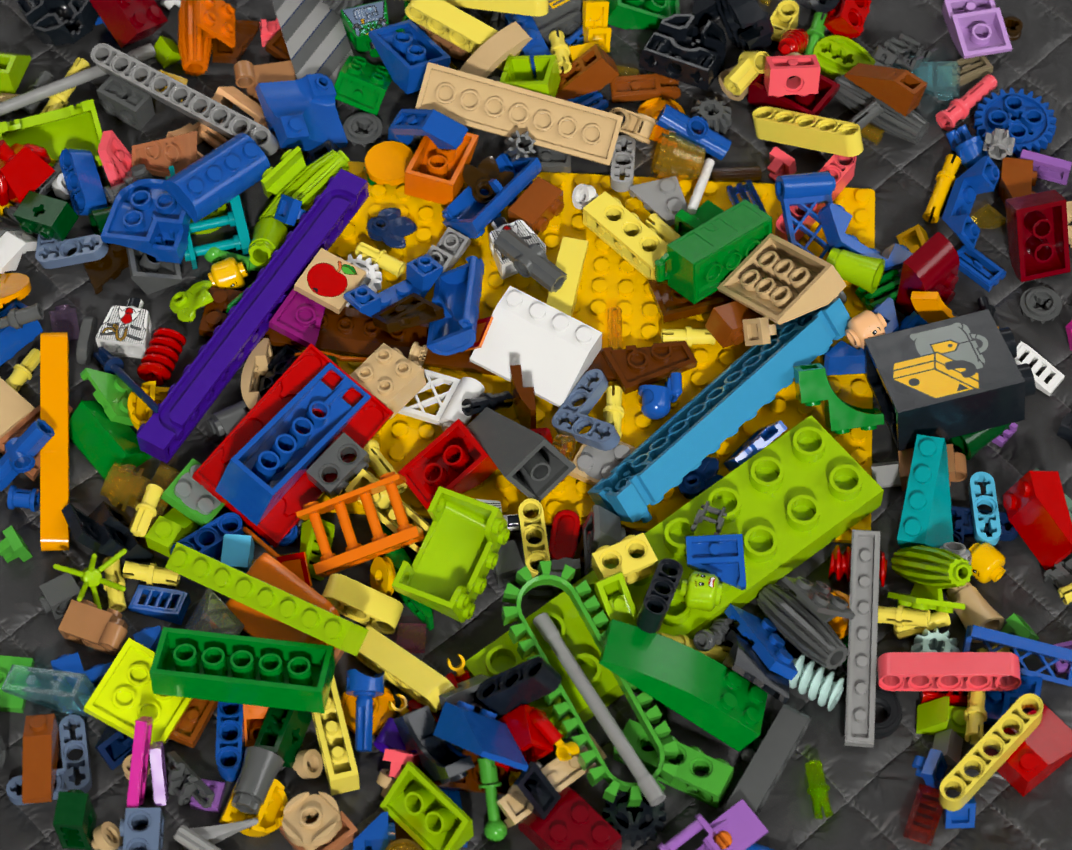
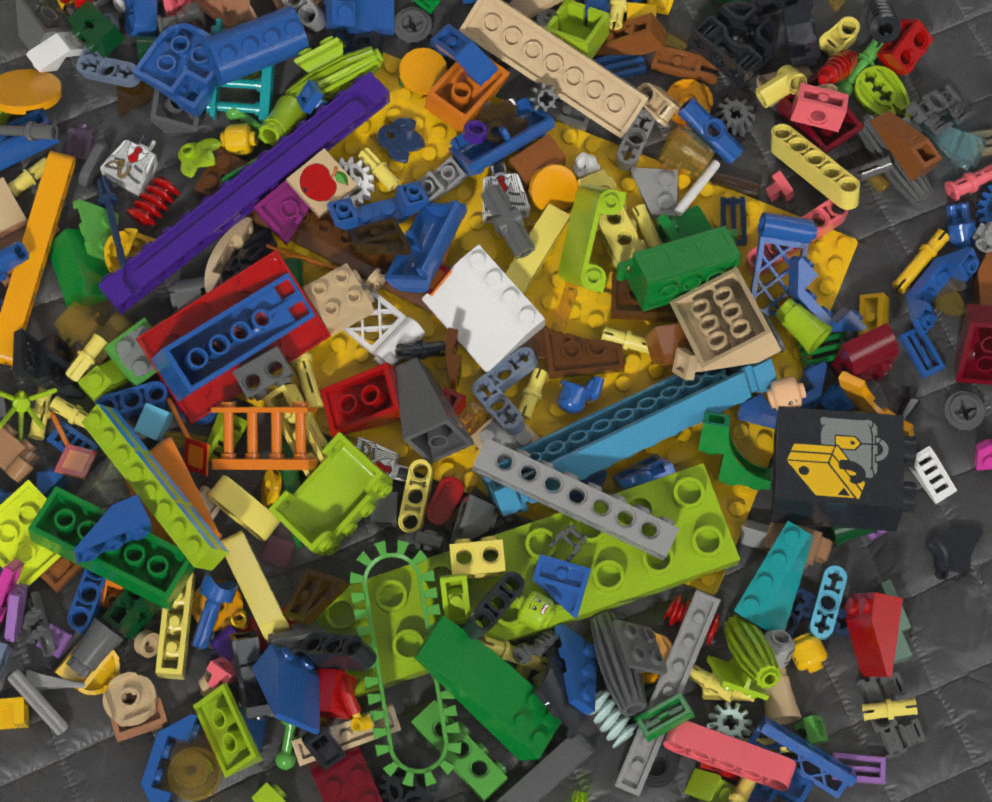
camera: 15 degrees right, 15 degrees up
(165, 611) = (74, 460): none -> piece
(245, 638) = (117, 526): none -> blue slope
(465, 195) = (475, 132): none -> dark purple tile
(471, 647) = (313, 596): none -> dark brown wing
(560, 219) = (553, 185): none -> light orange tile
(612, 276) = (581, 232): none -> lime windscreen
(644, 779) = (419, 771): light grey piece -> none
(688, 482) = (559, 500): none -> light grey brick
(873, 657) = (665, 721): none -> green tile

